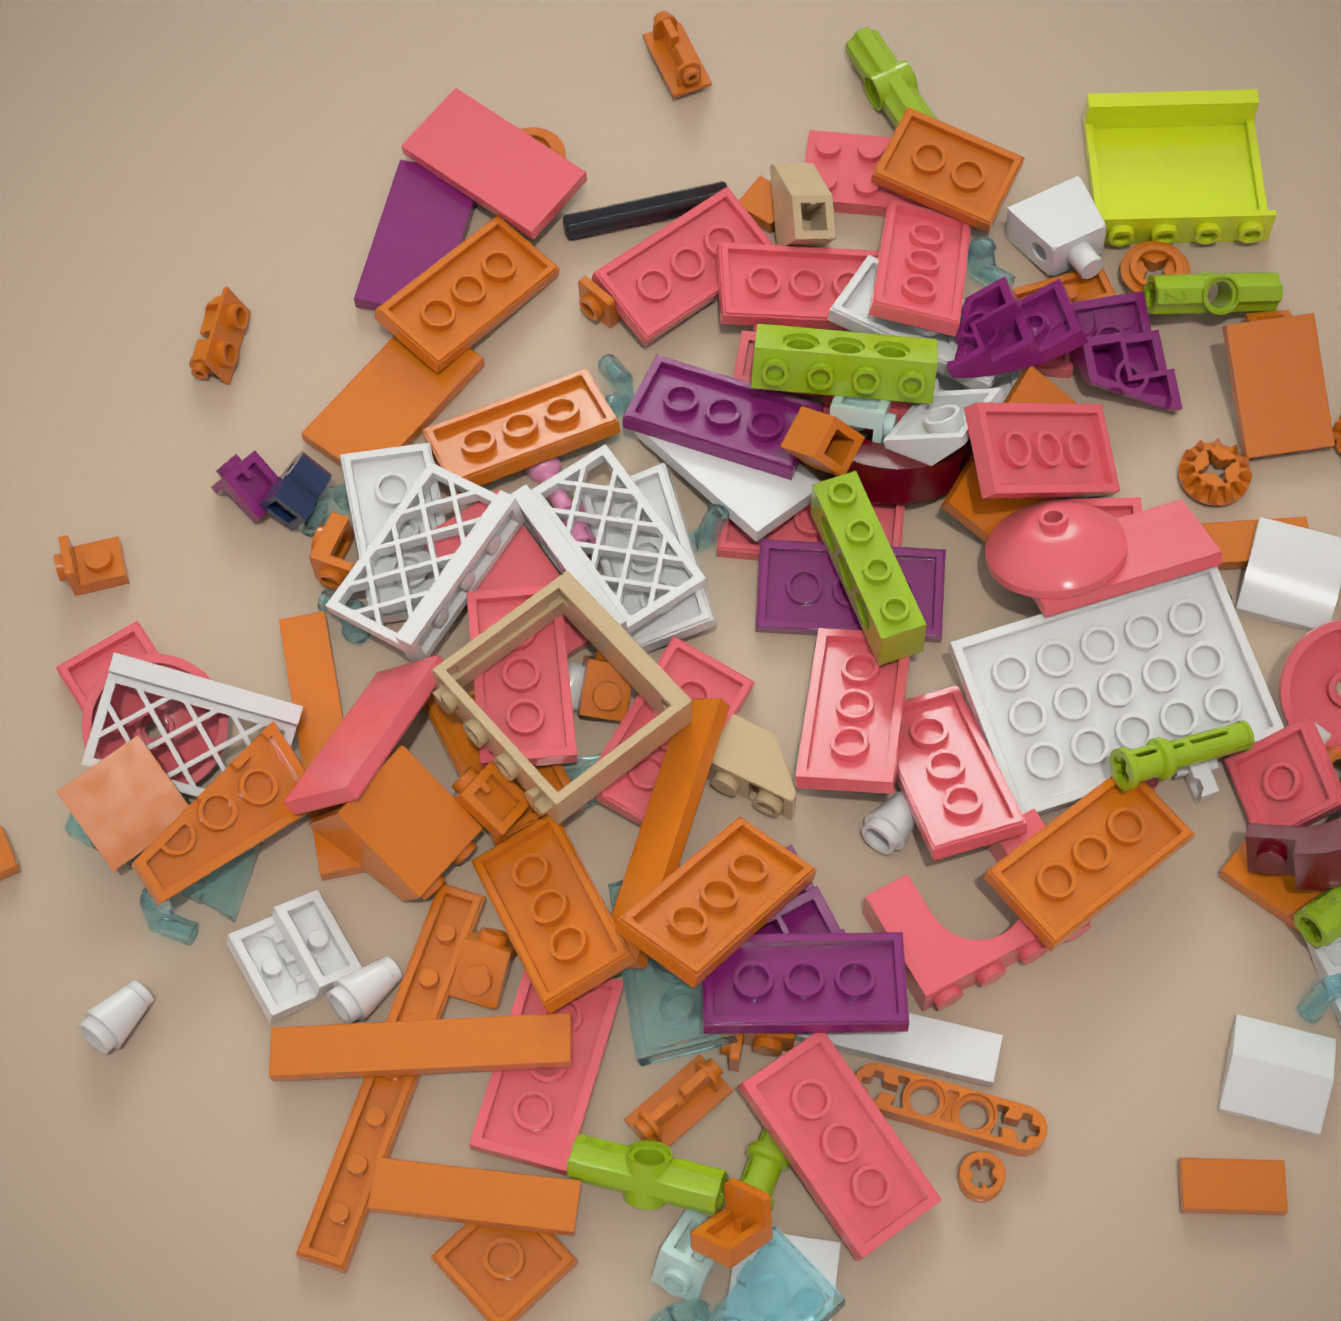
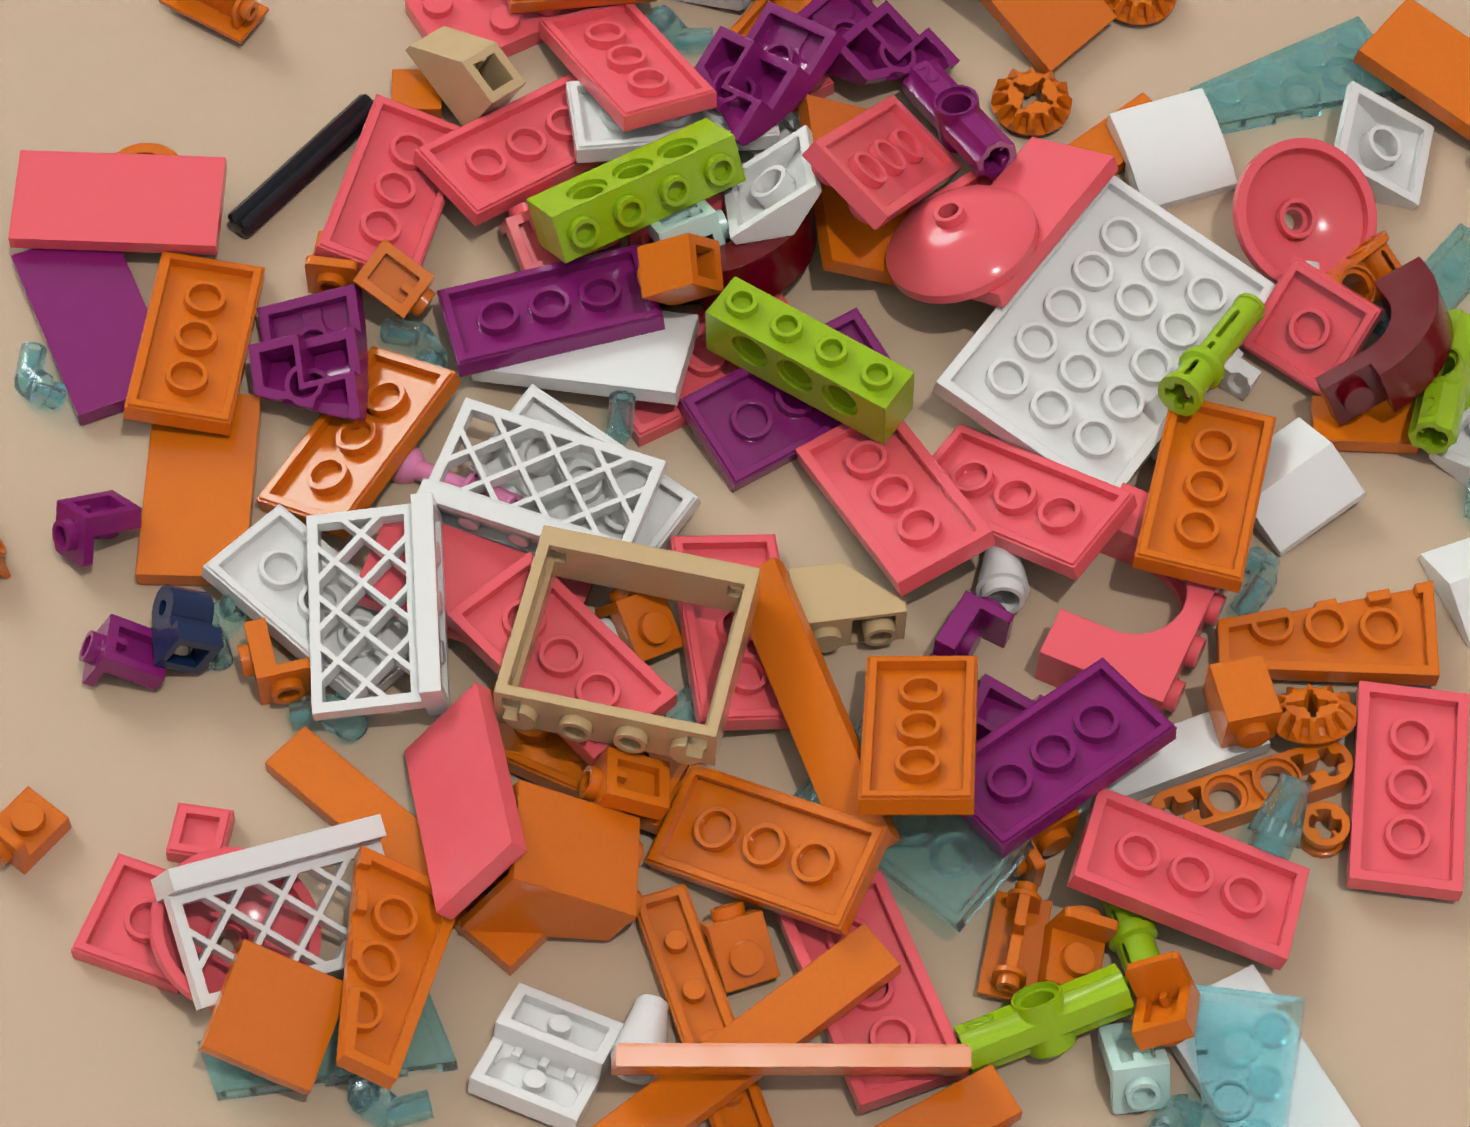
camera: 40 degrees left, 5 degrees down
(201, 642) = (198, 830): none -> coral tile
(302, 374) = (91, 517): none -> magenta bracket
(346, 254) = (33, 381): none -> clear light blue arm
(433, 1077) = (790, 1059): none -> tile
(538, 351) = (314, 353): none -> magenta slope
(630, 331) = (396, 281): none -> orange bracket
(716, 1136) = (1074, 943): none -> orange bracket
(827, 842) = (969, 622): none -> magenta bracket
(947, 1147) = (1281, 818): none -> clear light blue cone
(987, 1037) = (1242, 702): none -> orange brick
(1047, 1099) = (1333, 718): none -> orange gear
(1070, 1192) = (1408, 791): none -> coral plate
(1086, 955) = (1260, 585): none -> clear light blue arm
(1128, 1050) = (1364, 639): none -> orange wing
(1138, 453) = (958, 119): none -> magenta piece
(1178, 900) = (1302, 487): none -> white slope

